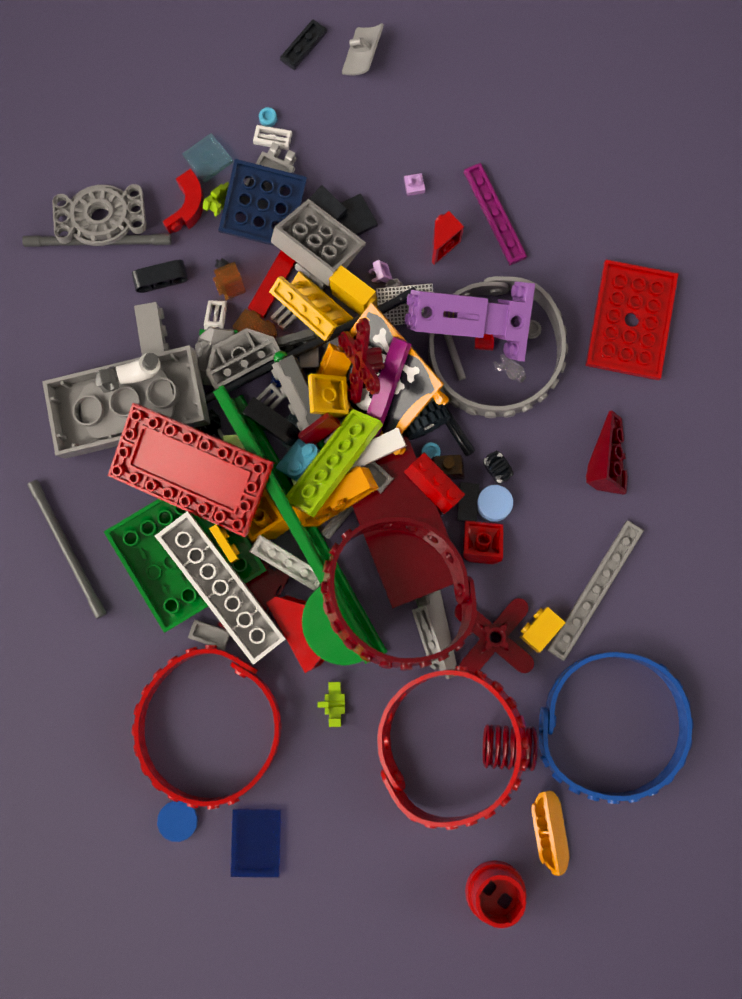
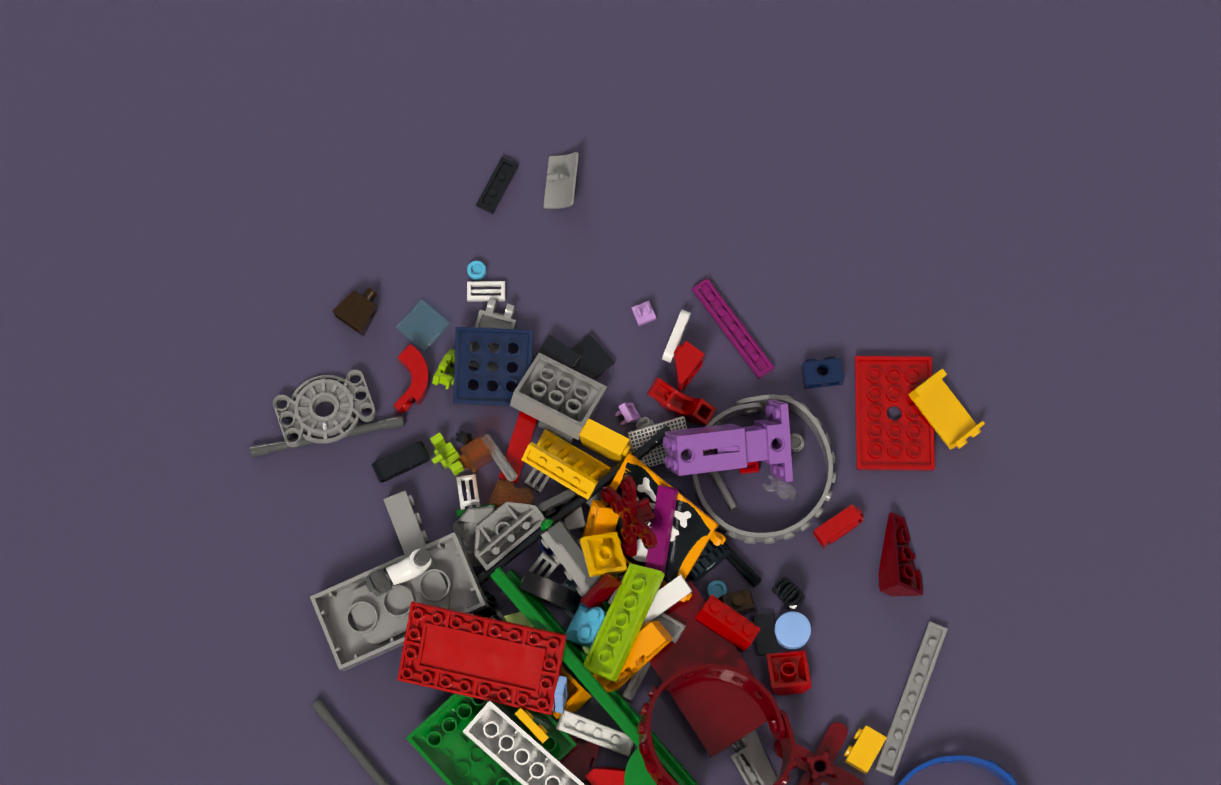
camera: 10 degrees left, 5 degrees down
(149, 131) = (357, 310): none -> dark brown torso
(203, 278) = (446, 455): none -> lime piece
(251, 289) = (499, 458): none -> light grey axle
(258, 519) = (560, 694): none -> light blue tile
(441, 208) = (676, 335): none -> white beam
(443, 279) = (692, 409): none -> red arch
(558, 414) = (838, 526): none -> red window
(561, 273) = (812, 379): none -> dark blue brick
(680, 326) = (944, 411): none -> yellow panel

